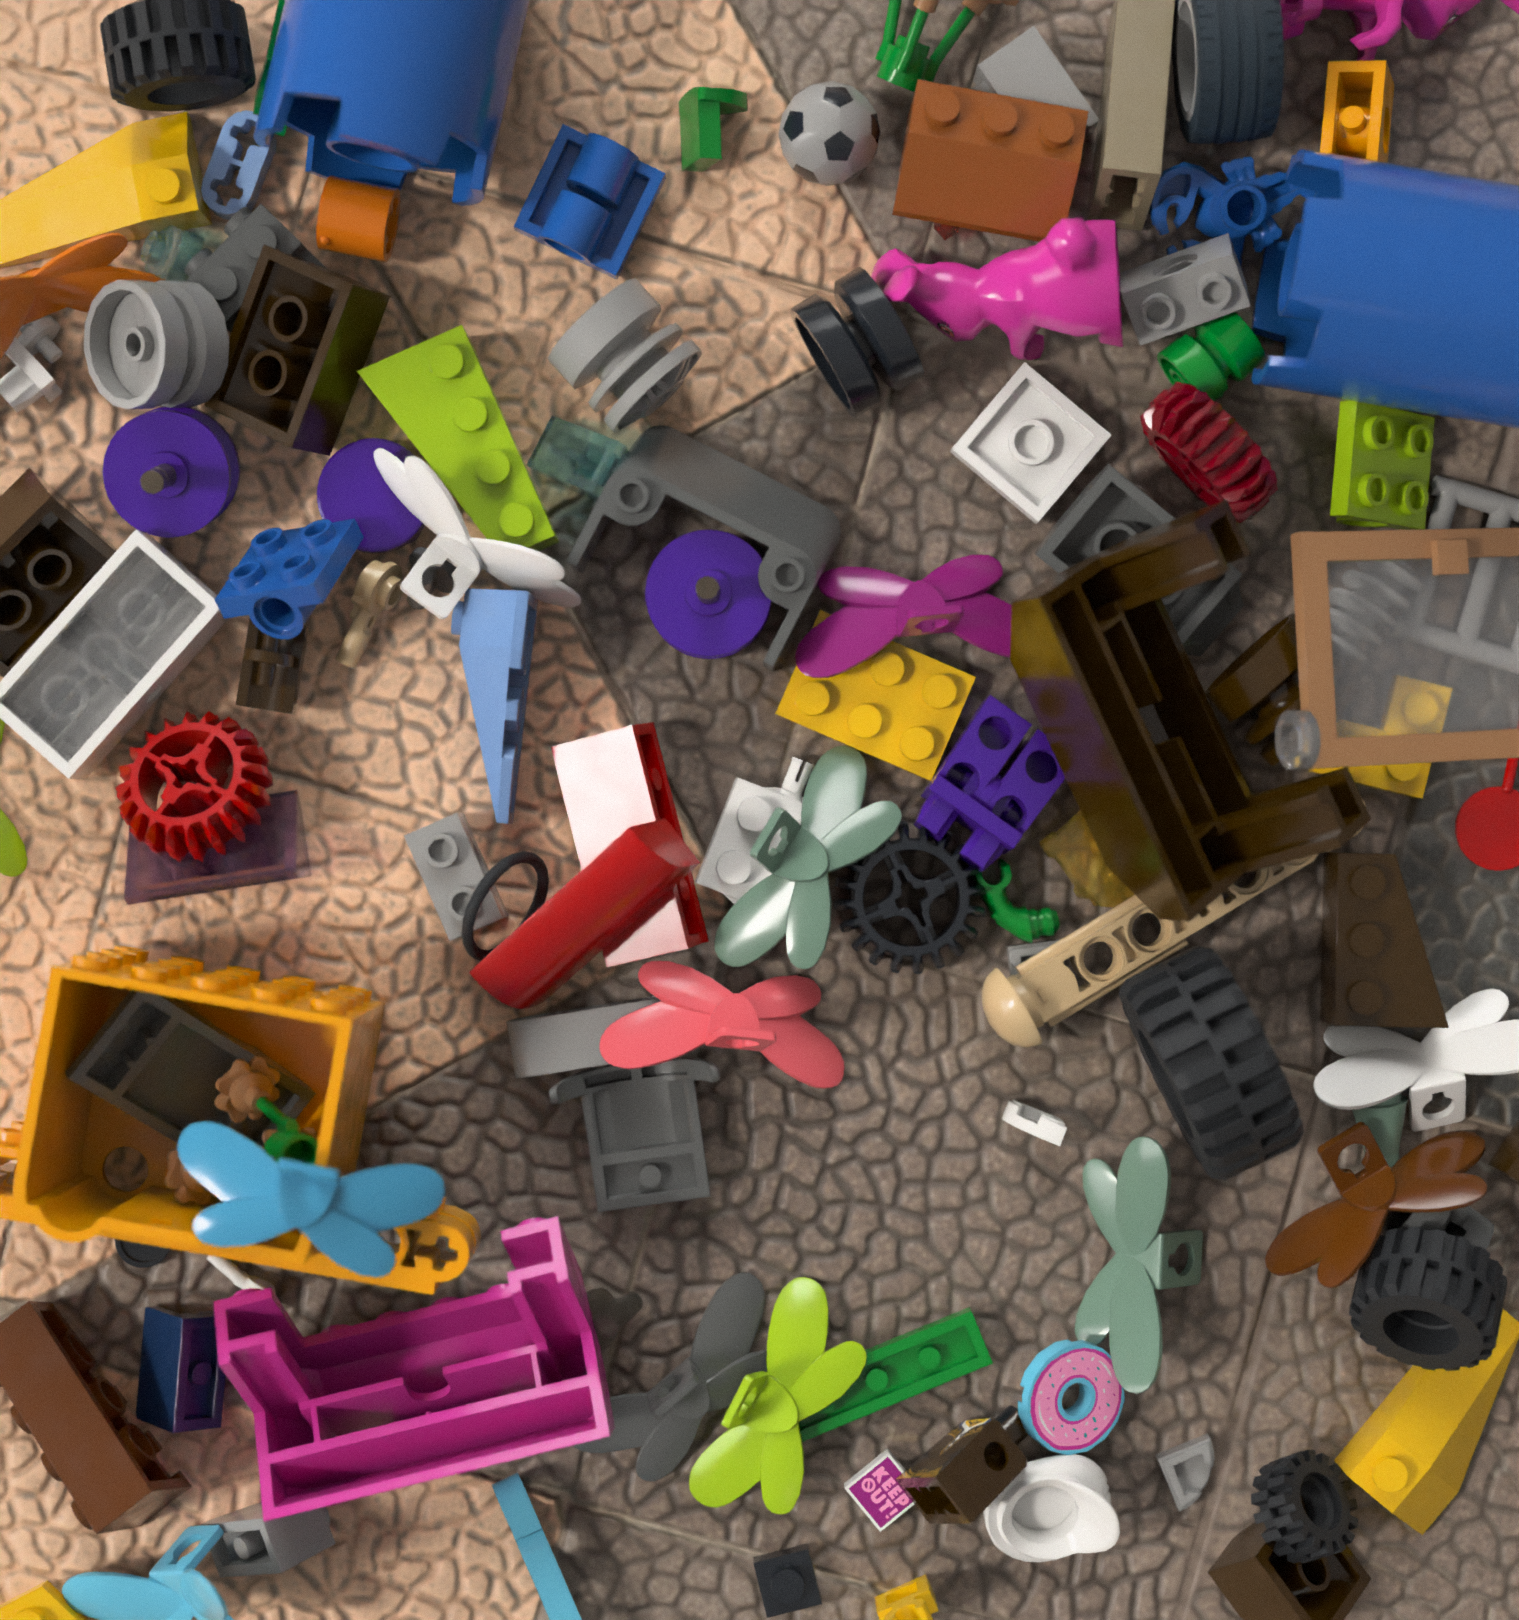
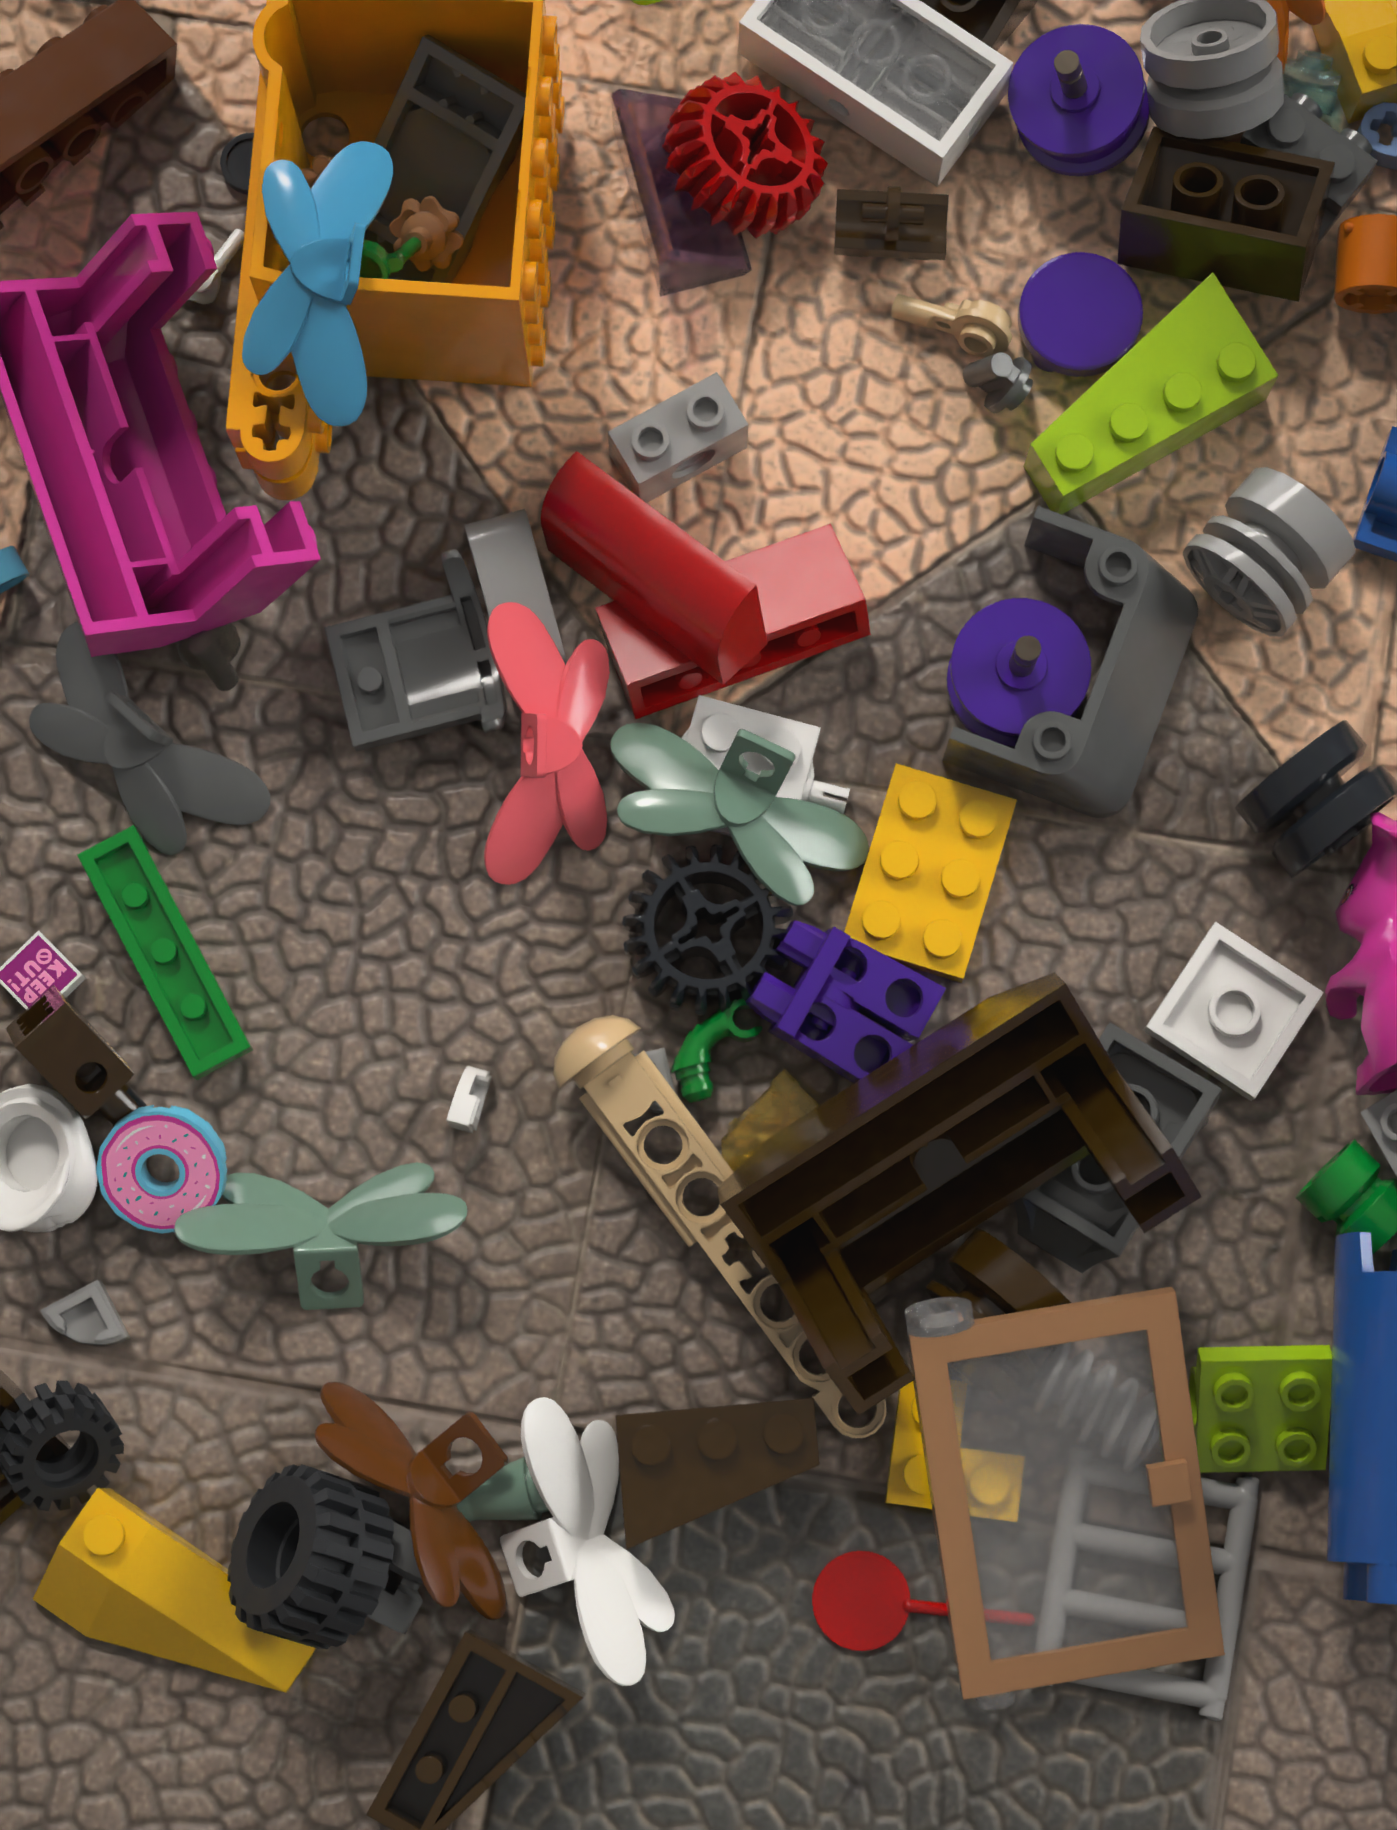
camera: 85 degrees right, 10 degrees down
(180, 1371) = (93, 206): dark blue panel -> none
(288, 575) = (983, 225): blue plate -> none
(433, 505) = (1030, 410): white piece -> none
(486, 884) = (677, 457): black tyre -> none
(496, 658) = (916, 459): medium blue wedge -> none
(576, 457) = (1152, 516): clear light blue slope -> none
(765, 1412) = (152, 861): lime piece -> none
(890, 606) = (1031, 873): magenta piece -> none
(1209, 450) = (1250, 1203): dark red gear -> none
(1212, 1062) = (559, 1264): black tyre -> none

